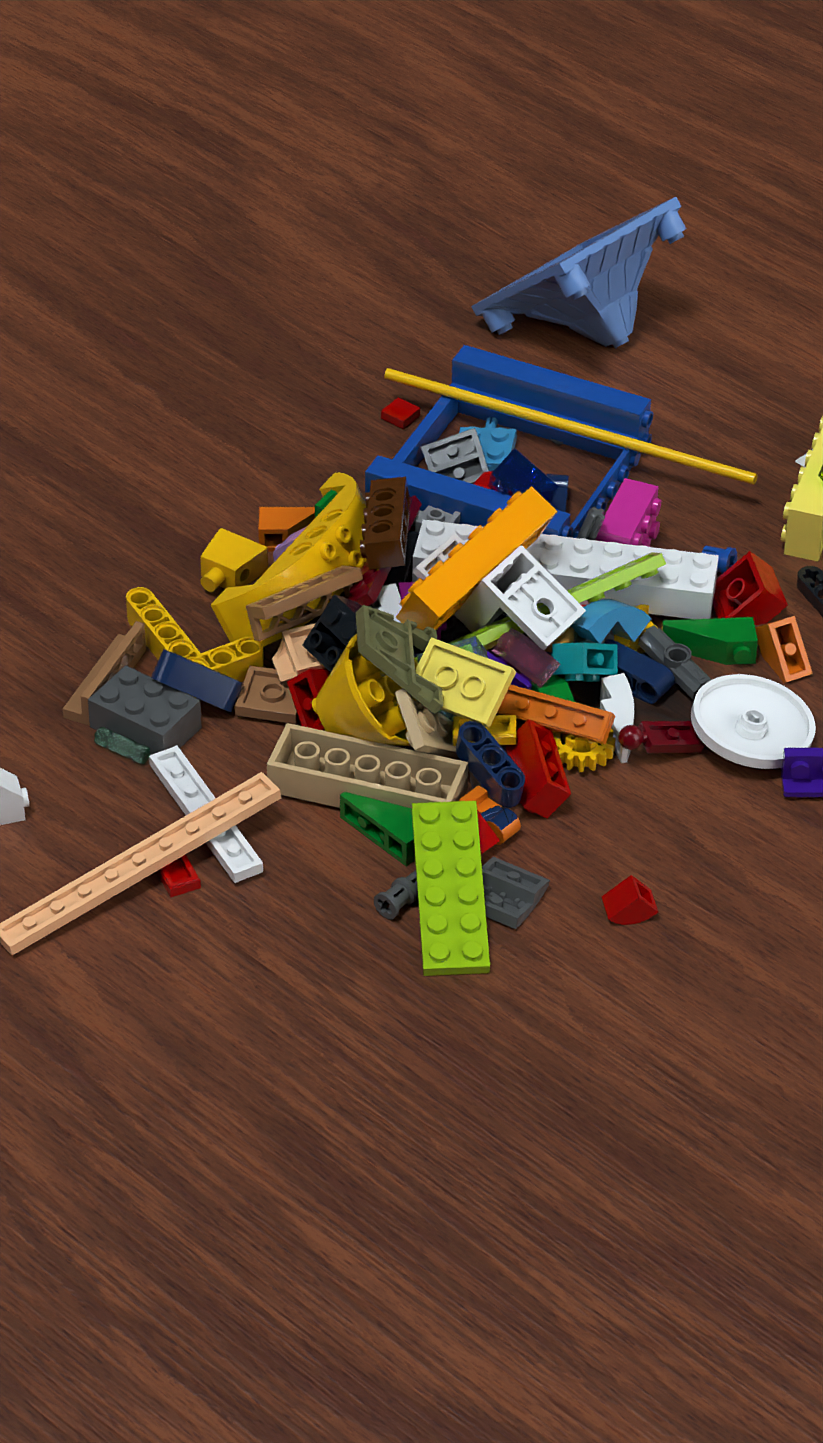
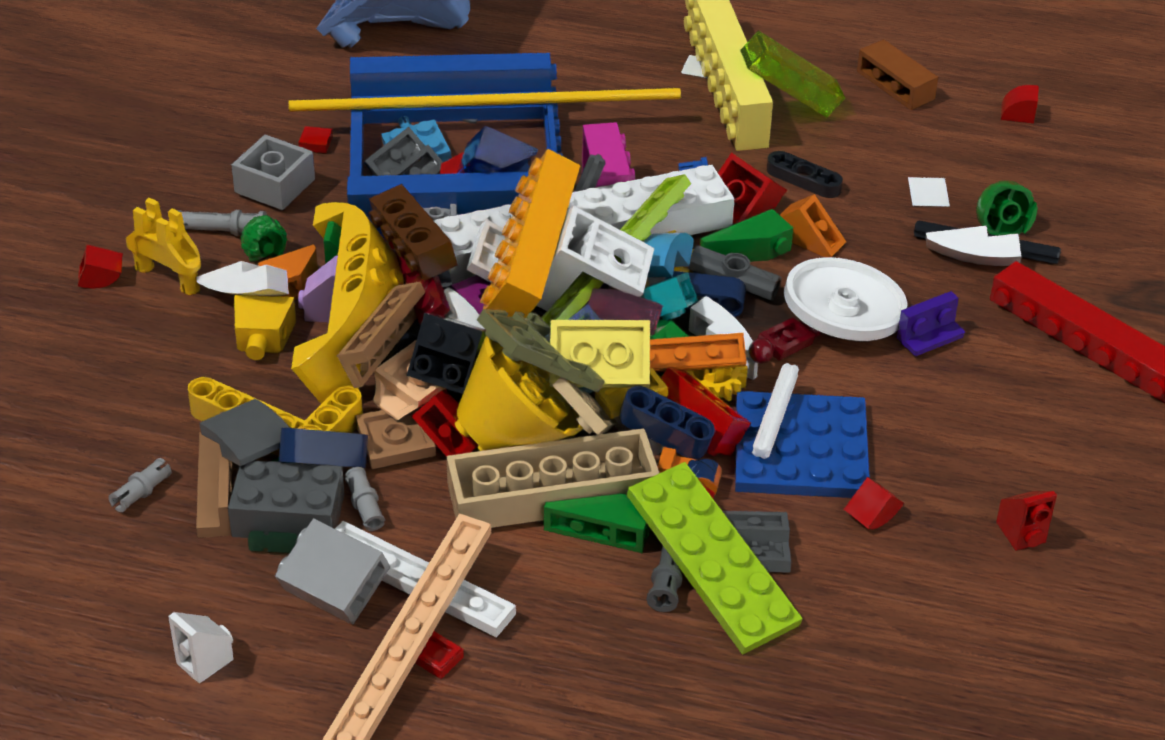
camera: 30 degrees left, 0 degrees up
(43, 658) = (140, 485): none -> light grey pin
(133, 465) = (99, 267): none -> red brick
(137, 780) = (332, 571): none -> light grey brick
(140, 642) = (245, 431): none -> dark grey slope
(188, 464) = (165, 243): none -> yellow connector
(210, 735) = (364, 498): none -> light grey pin
(238, 519) = (247, 279): none -> white slope
(273, 465) = (231, 222): none -> light grey pin
(282, 487) = (263, 238): none -> green piece
(334, 430) = (273, 172): none -> light grey brick
(603, 792) = (775, 411): none -> white axle
(613, 830) = (816, 450): none -> blue plate
(748, 965) = (1026, 518): none -> red slope

